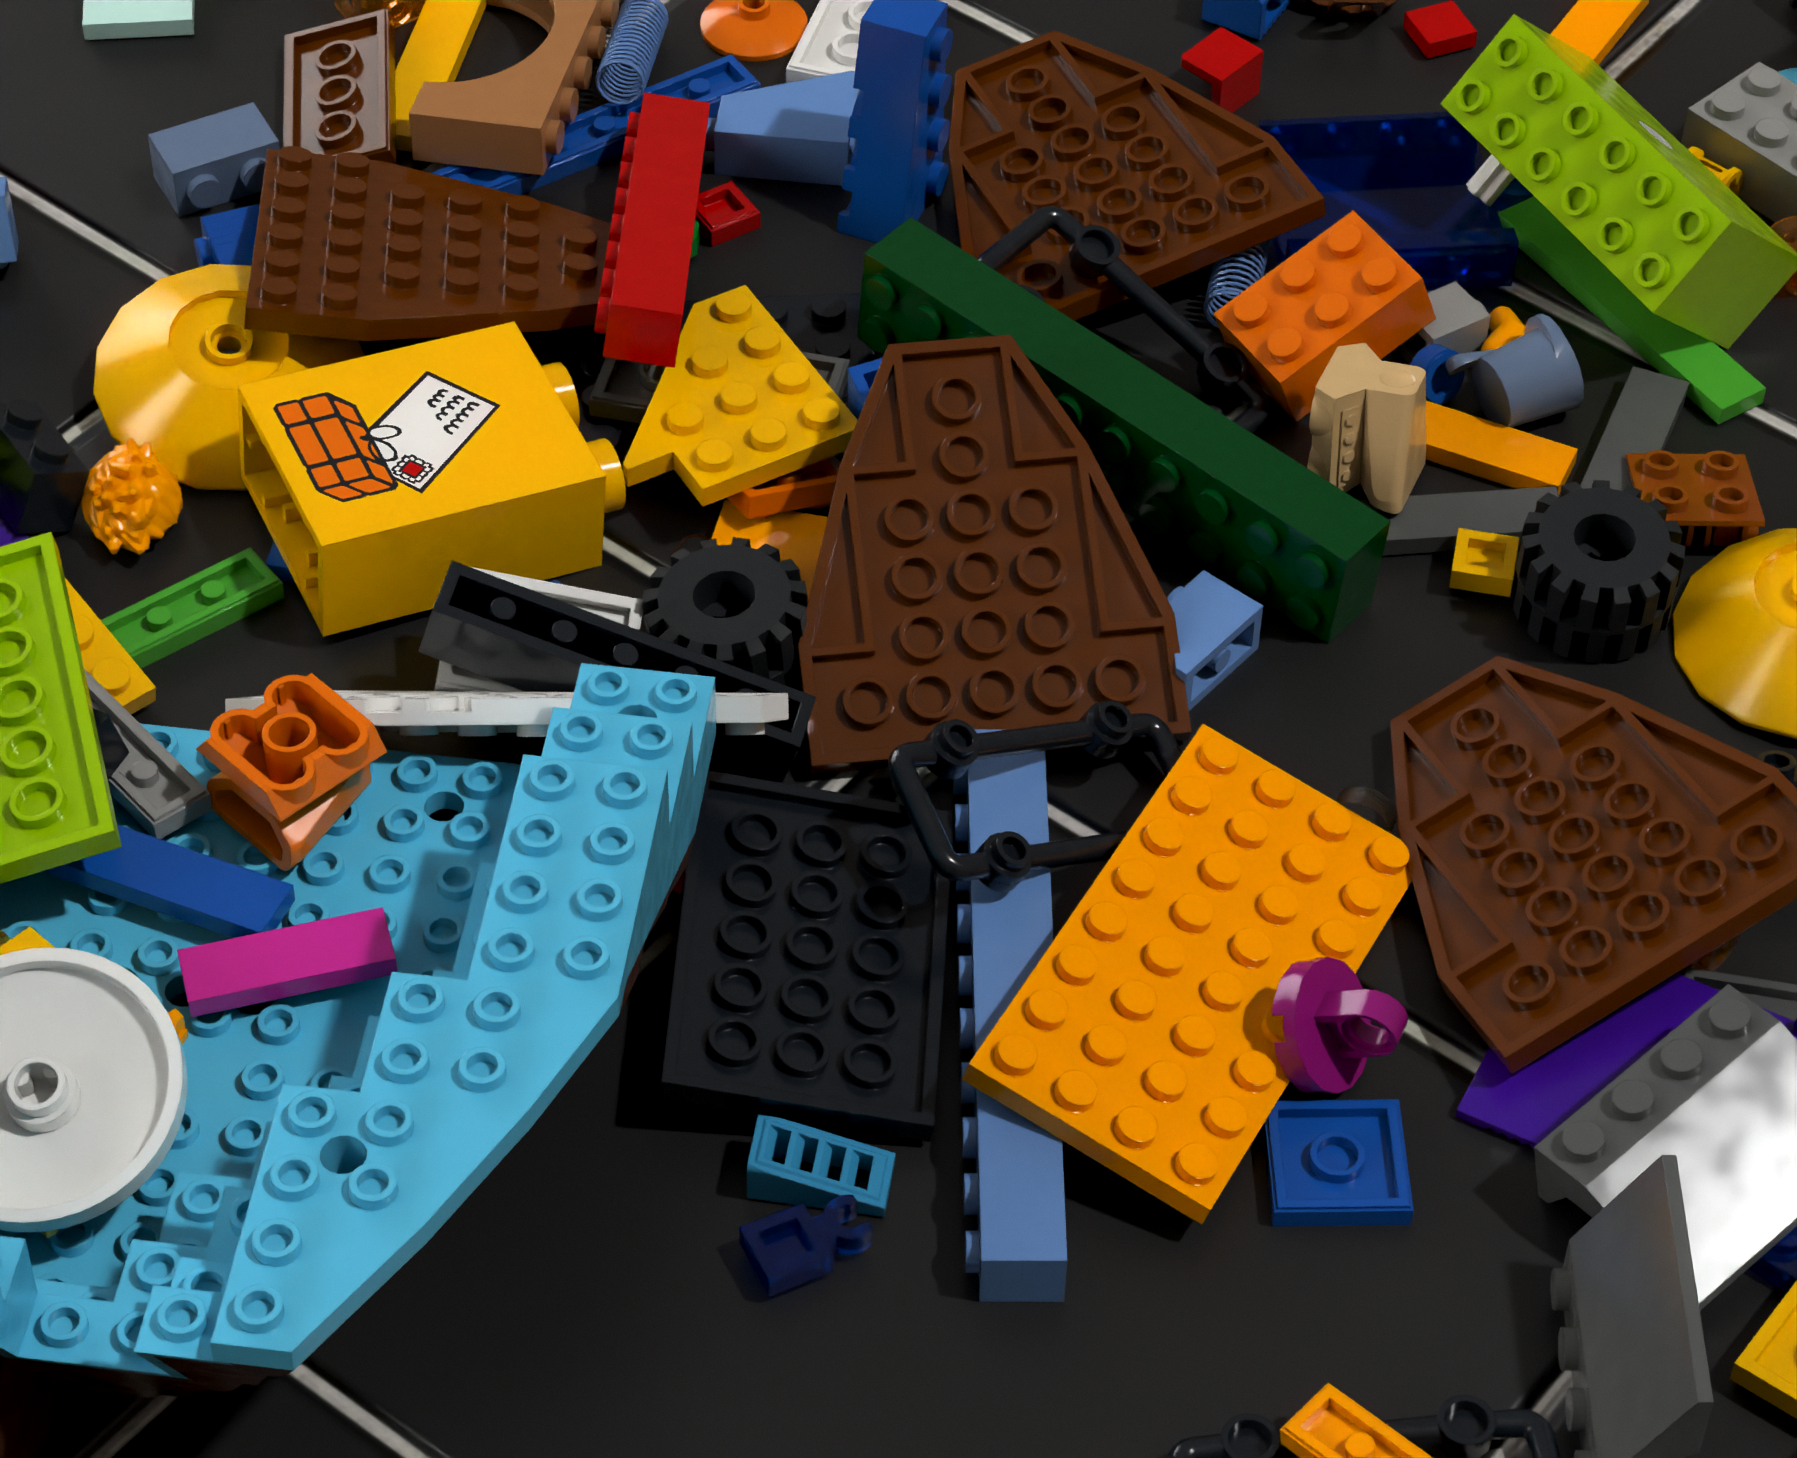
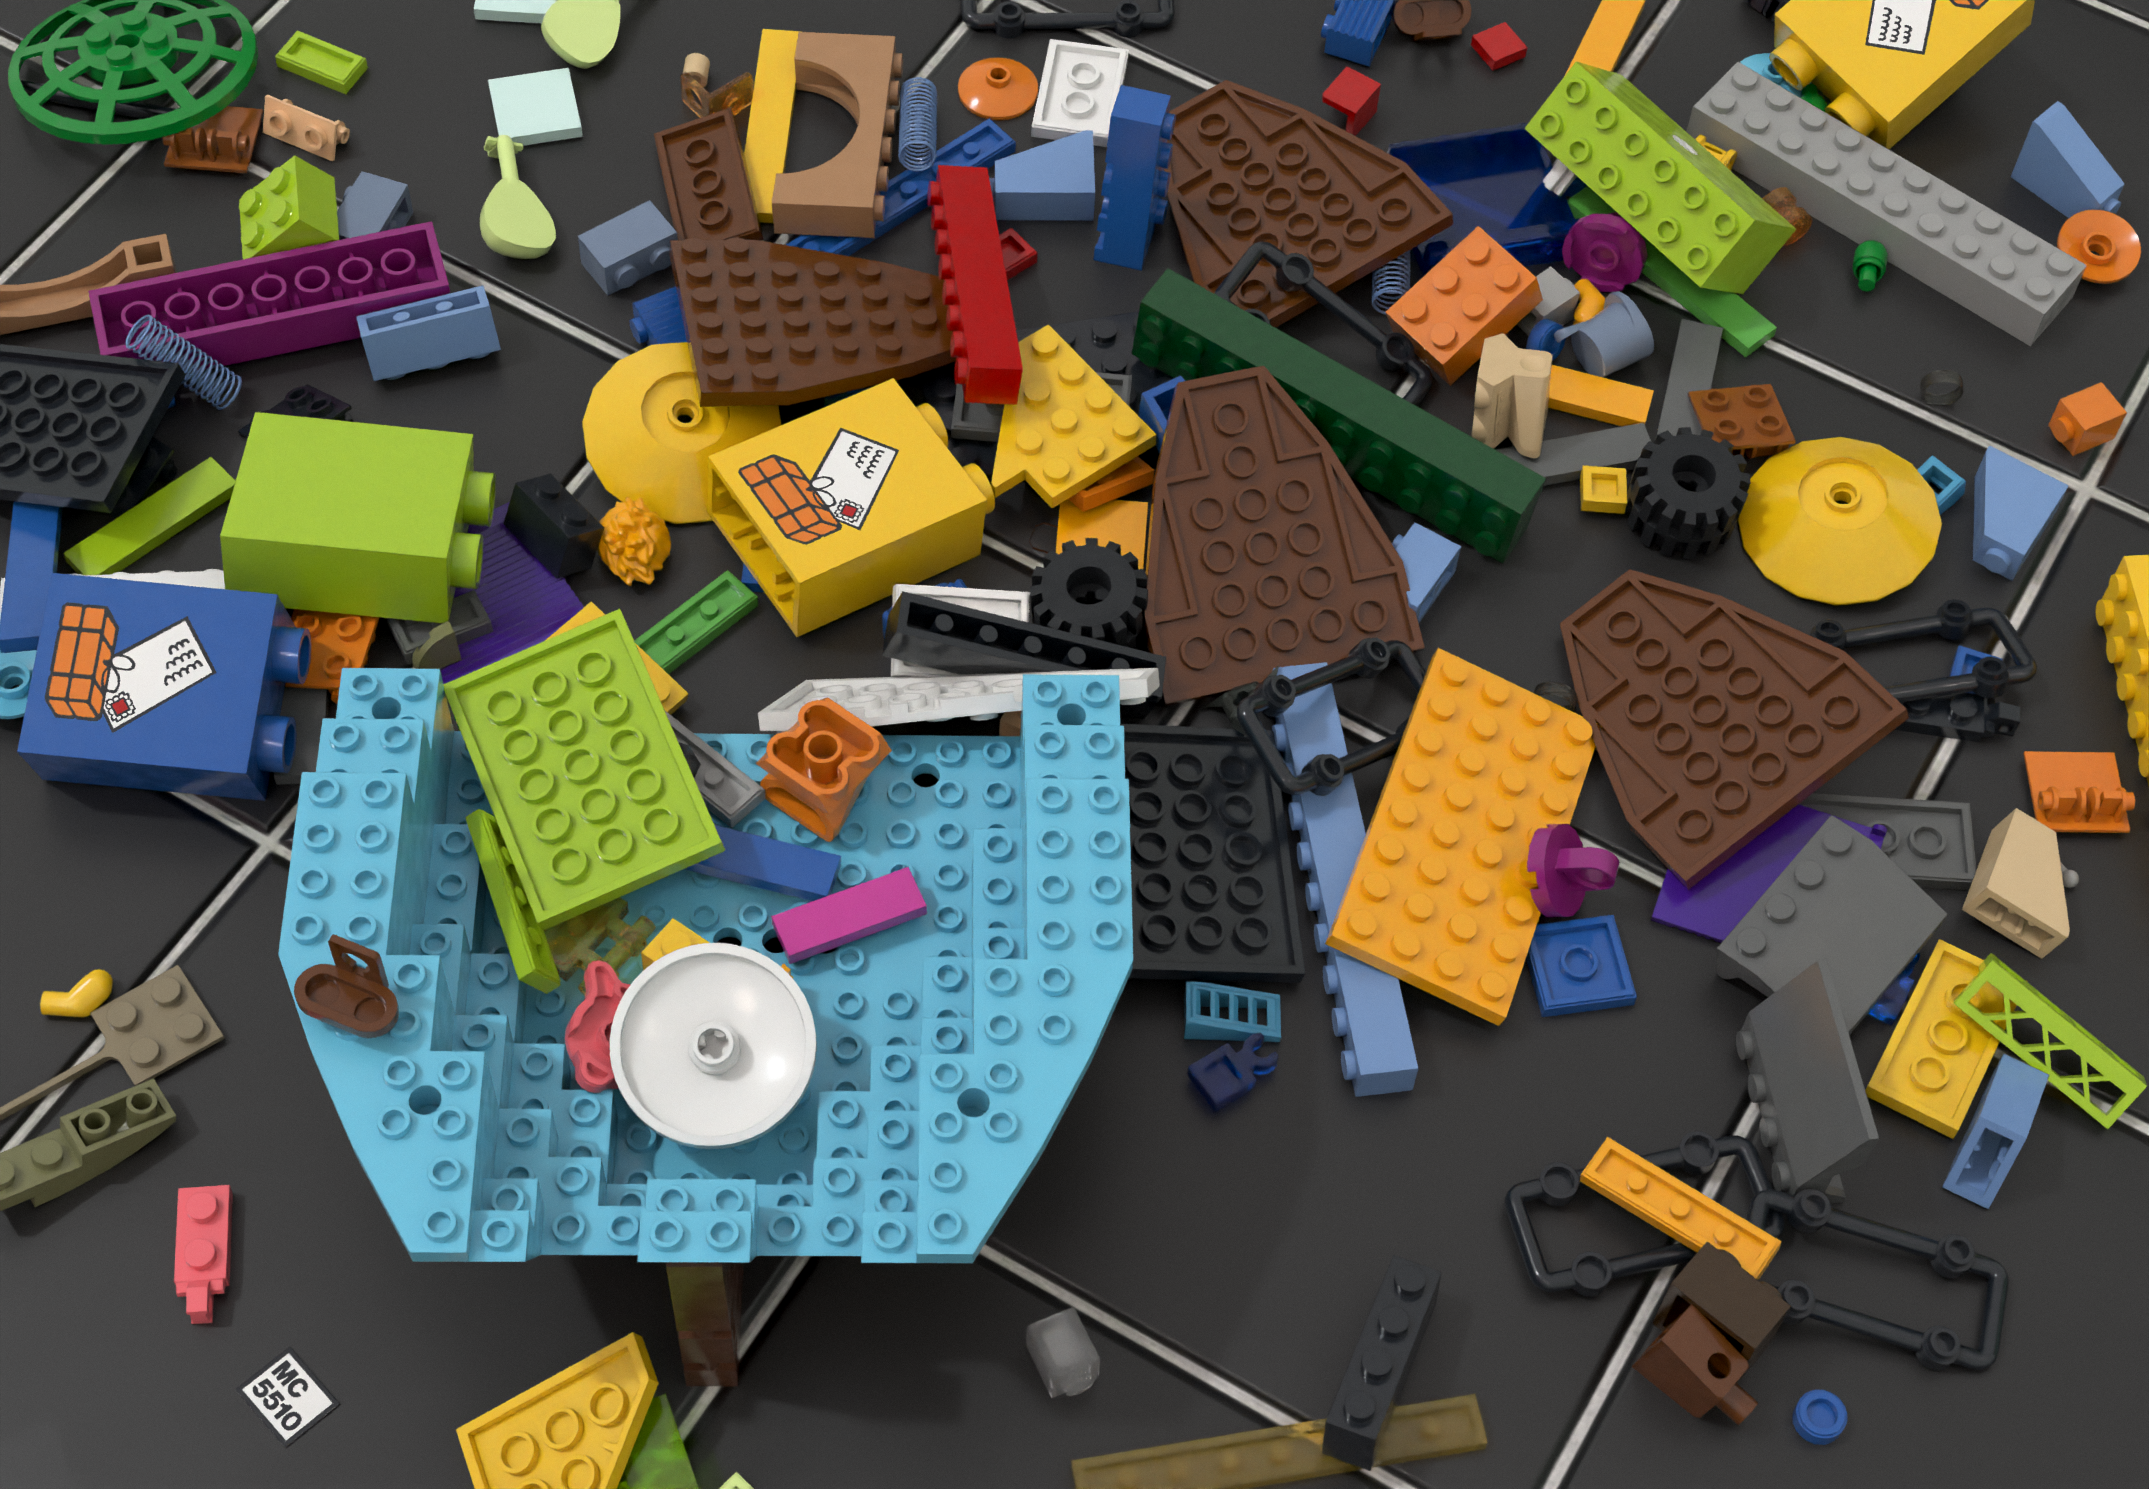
camera: 10 degrees left, 10 degrees up
(72, 106) = (512, 215): none -> yellowish green piece
(1535, 268) = (1605, 251): none -> magenta tile

